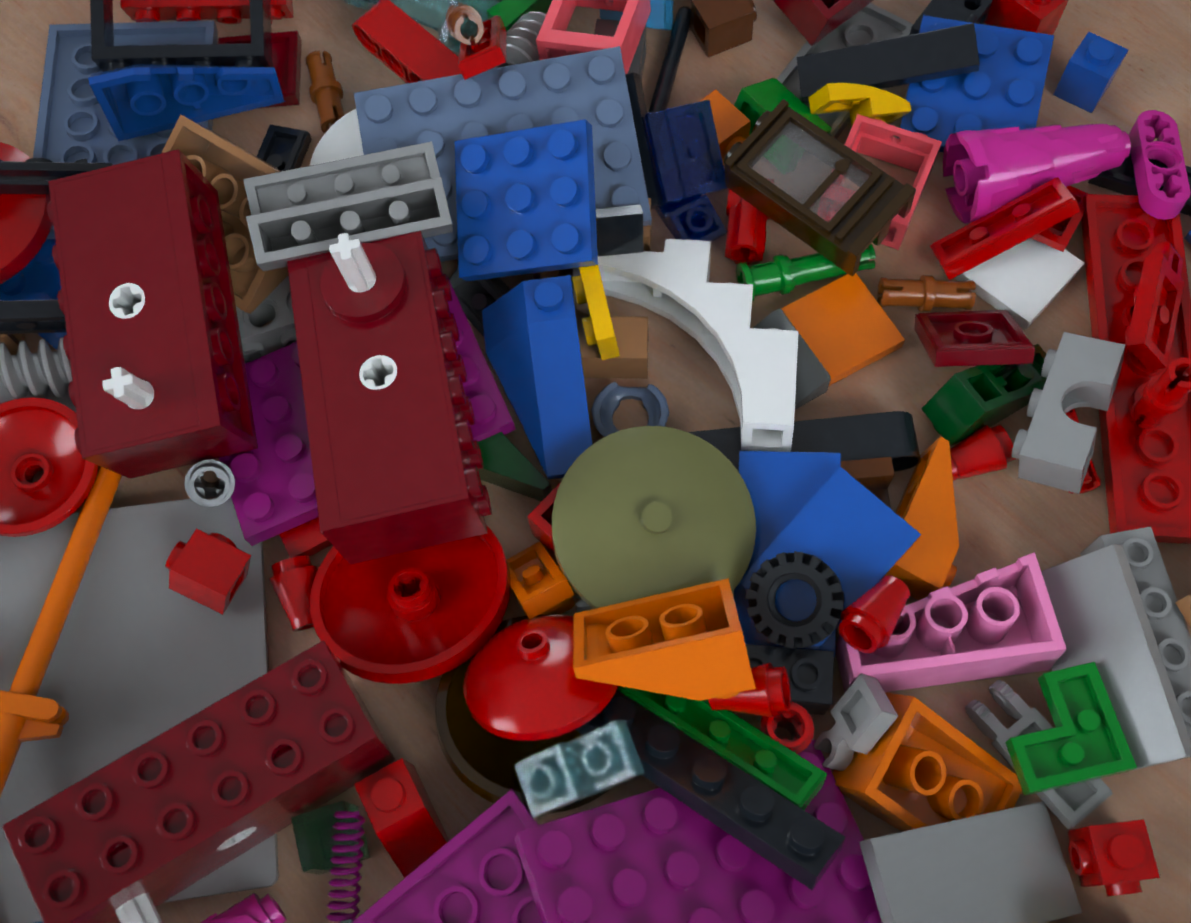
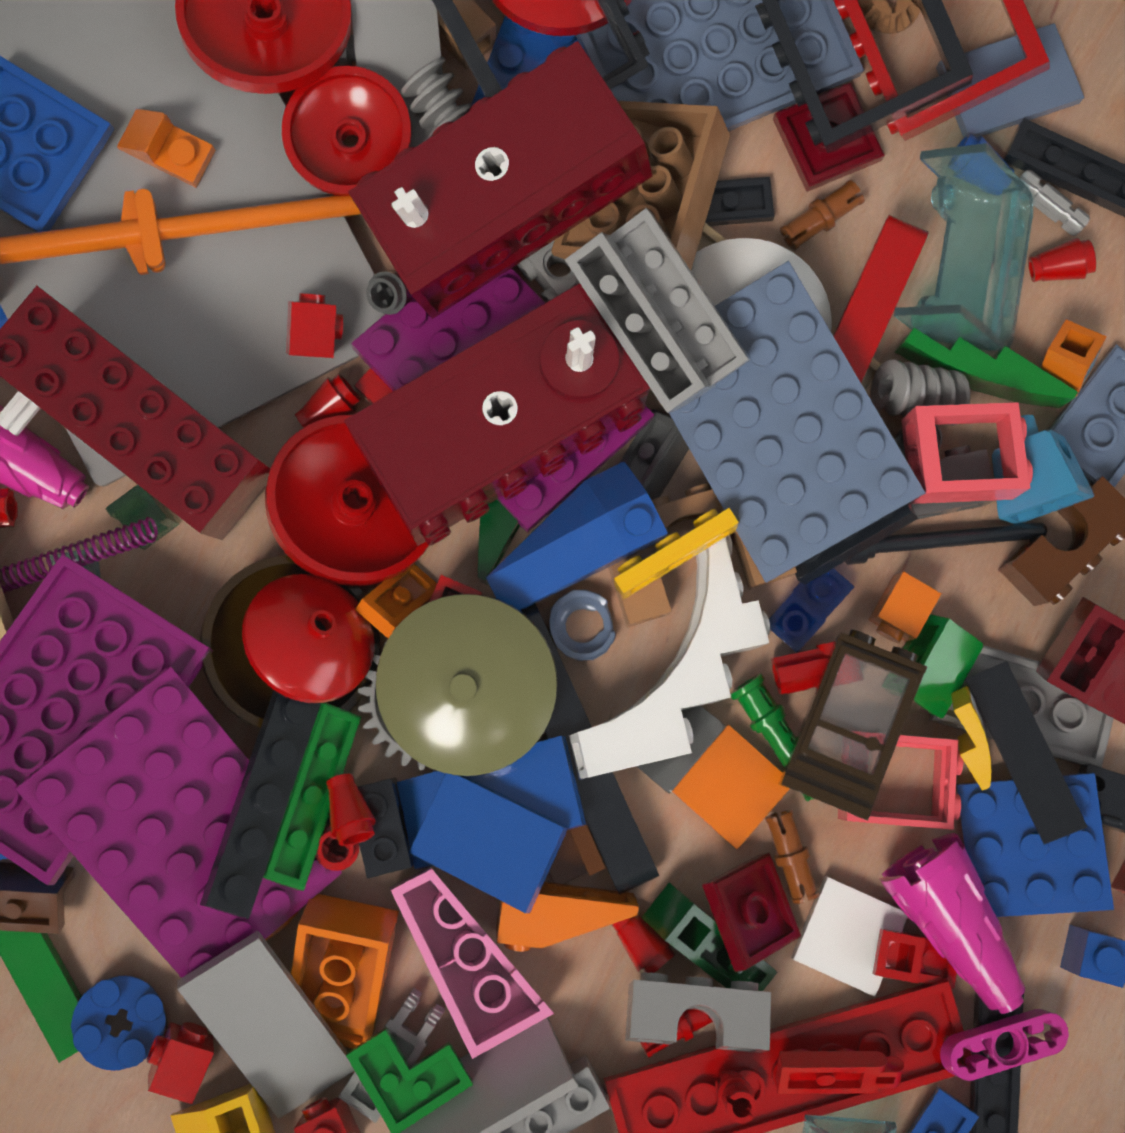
camera: 55 degrees right, 15 degrees up
(153, 97) = (744, 63): blue wedge -> none
(402, 815) = (175, 569): red slope -> none
(473, 28) = (901, 333): dark orange pin -> none
(487, 52) = (889, 358): red tile -> none
(526, 201) = (727, 466): blue plate -> none
(579, 768) = (240, 695): clear light blue slope -> none
(619, 230) = (743, 557): black tile -> none
(667, 644) = (355, 730): orange slope -> none
(686, 151) = (856, 589): clear blue plate -> none
(764, 610) = (412, 819): black tyre -> none
(860, 720) = (358, 905): light grey plate -> none
(873, 616) = (444, 893): red cone -> none
(1005, 228) = (876, 912): red tile -> none

